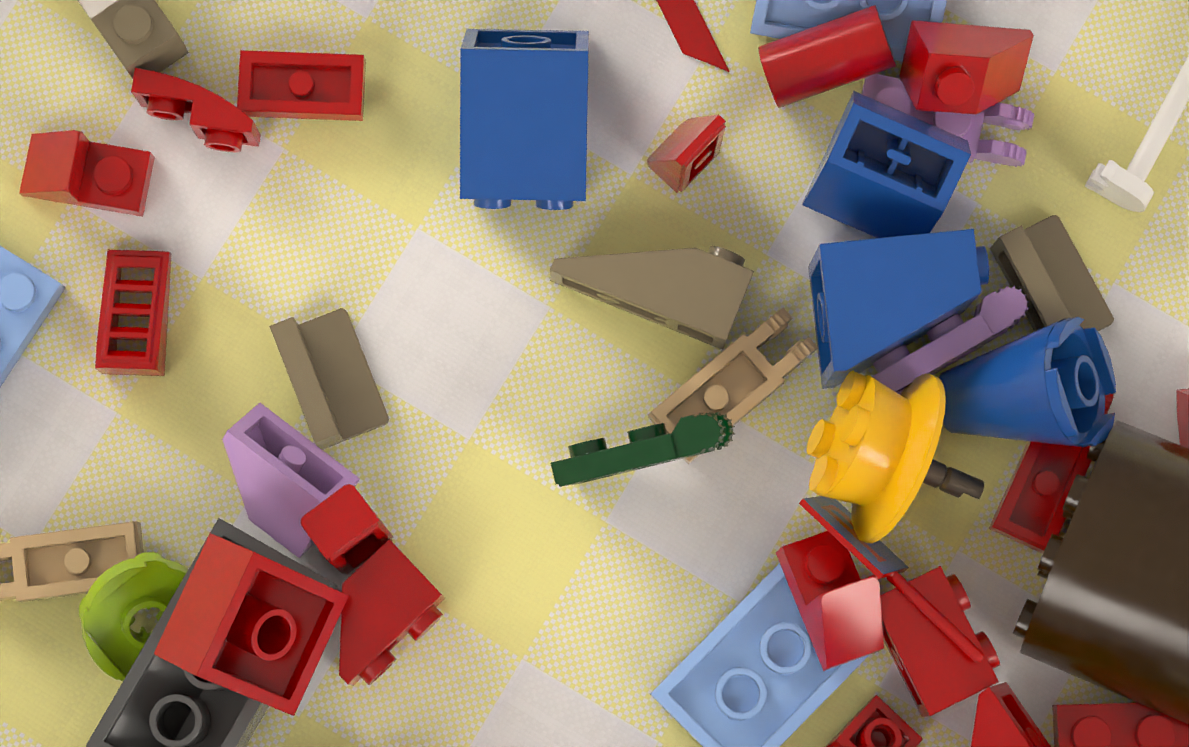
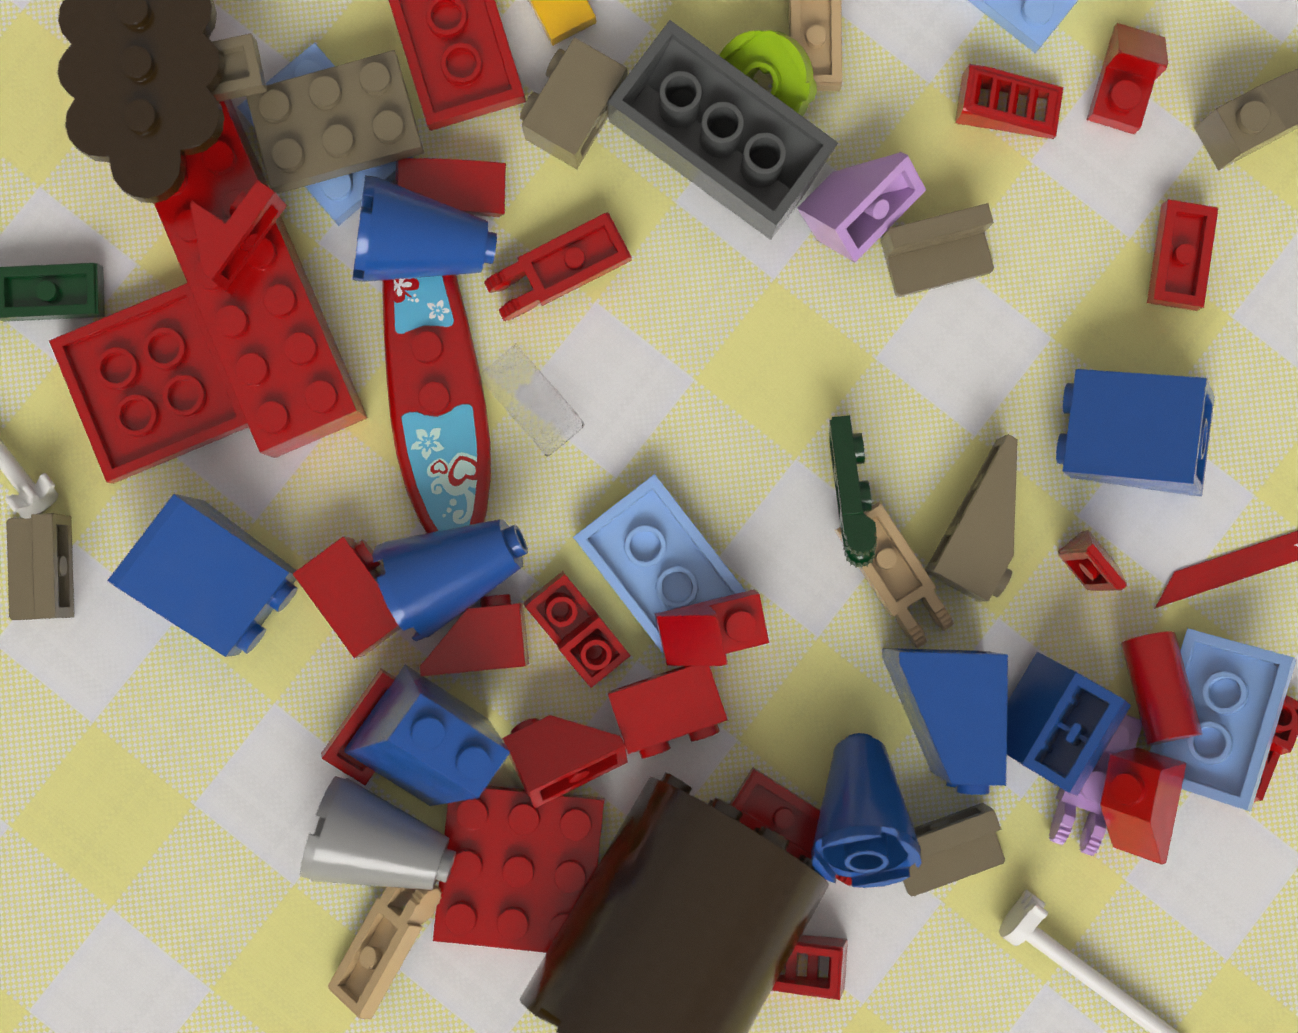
camera: 95 degrees right, 5 degrees up
(211, 118) = (1170, 172): red slope -> none
(251, 625) = (748, 154): red slope -> none
(345, 529) = (815, 244): red slope -> none
(383, 606) = (749, 269): red slope -> none
(882, 451) = (828, 684): yellow piece -> none
(883, 564) = (739, 669): red piece -> none
(953, 339) = (908, 756): lavender hinge -> none

